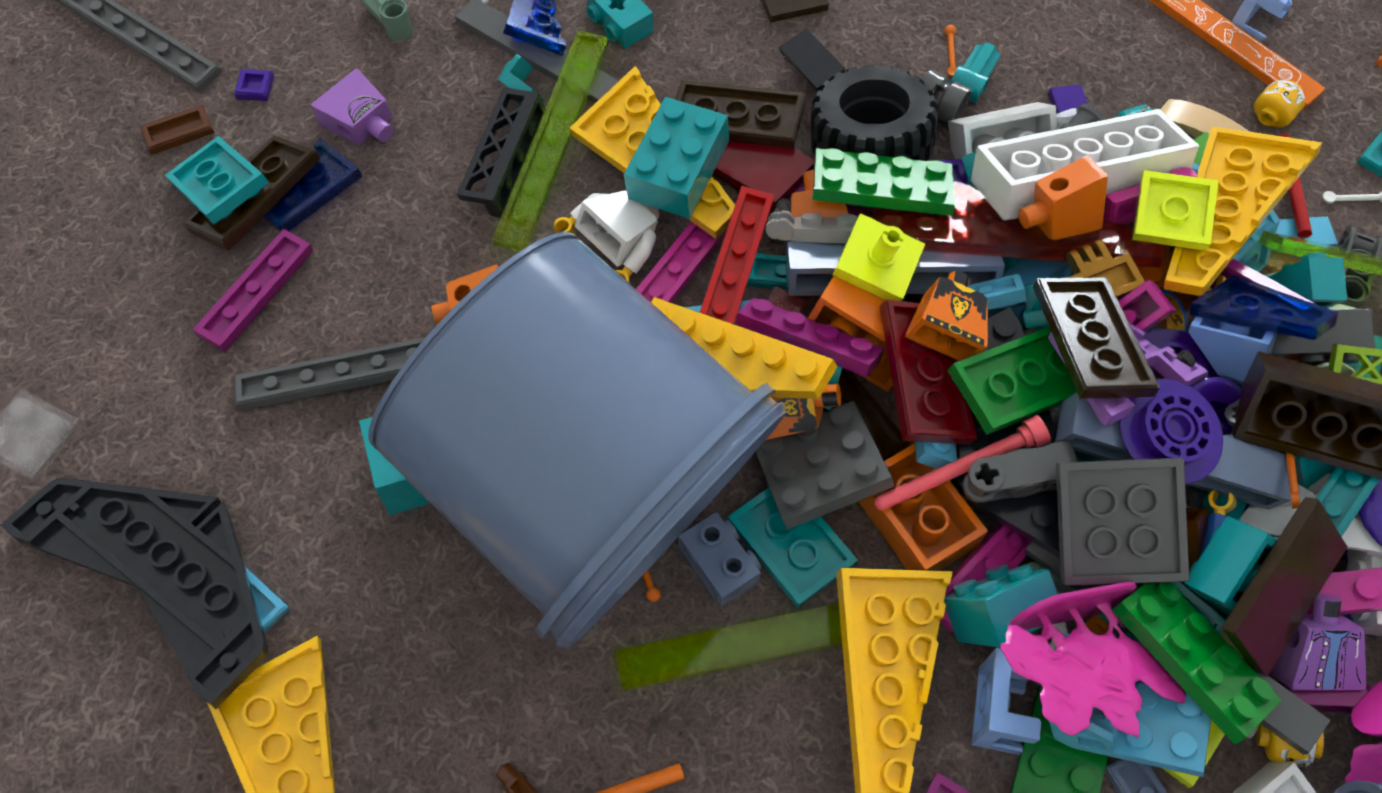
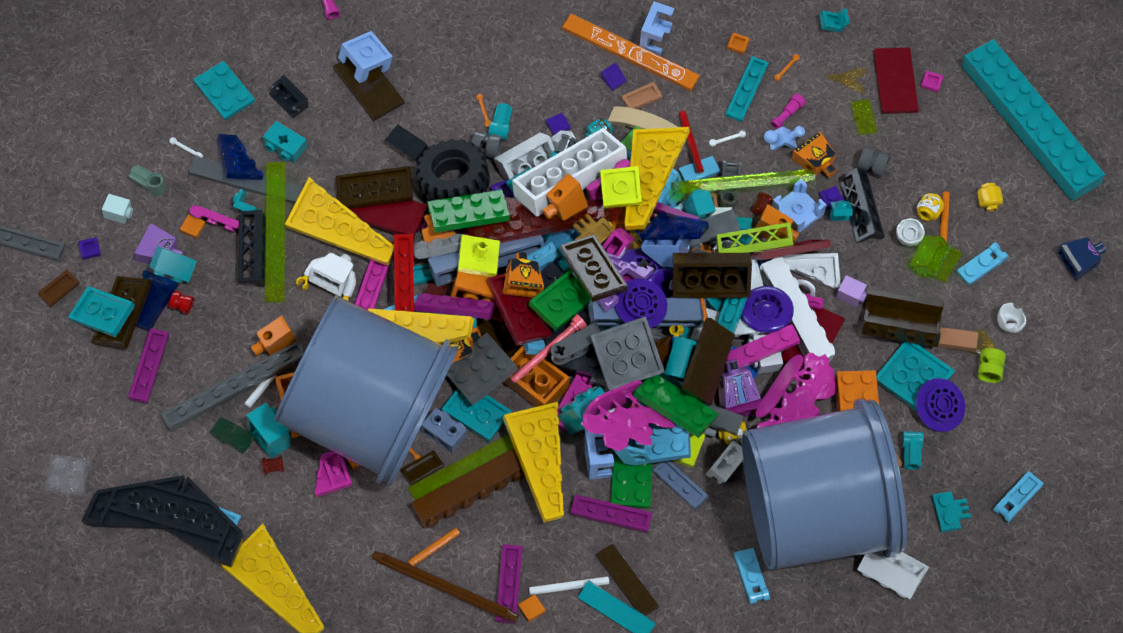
camera: 20 degrees left, 0 degrees up
(320, 37) = (117, 209): none -> light aqua brick
(336, 449) = (233, 434): none -> clear green slope
(350, 200) = (181, 302): none -> red wheel
(360, 137) = (172, 264): none -> teal brick
(384, 527) = (272, 464): none -> clear red bush
(426, 96) = (192, 226): none -> orange tile
(461, 88) = (214, 217): none -> dark pink hinge
(477, 589) = (331, 474): none -> dark pink wing
(655, 619) = (422, 468): none -> dark brown tile
(677, 157) = (354, 227): teal brick -> none
(728, 691) = (467, 489): none -> reddish brown brick
(1177, 54) = (613, 76): none -> dark purple slope
(1221, 95) = (642, 96): none -> nougat tile
(1279, 103) = (674, 94): yellow head -> none

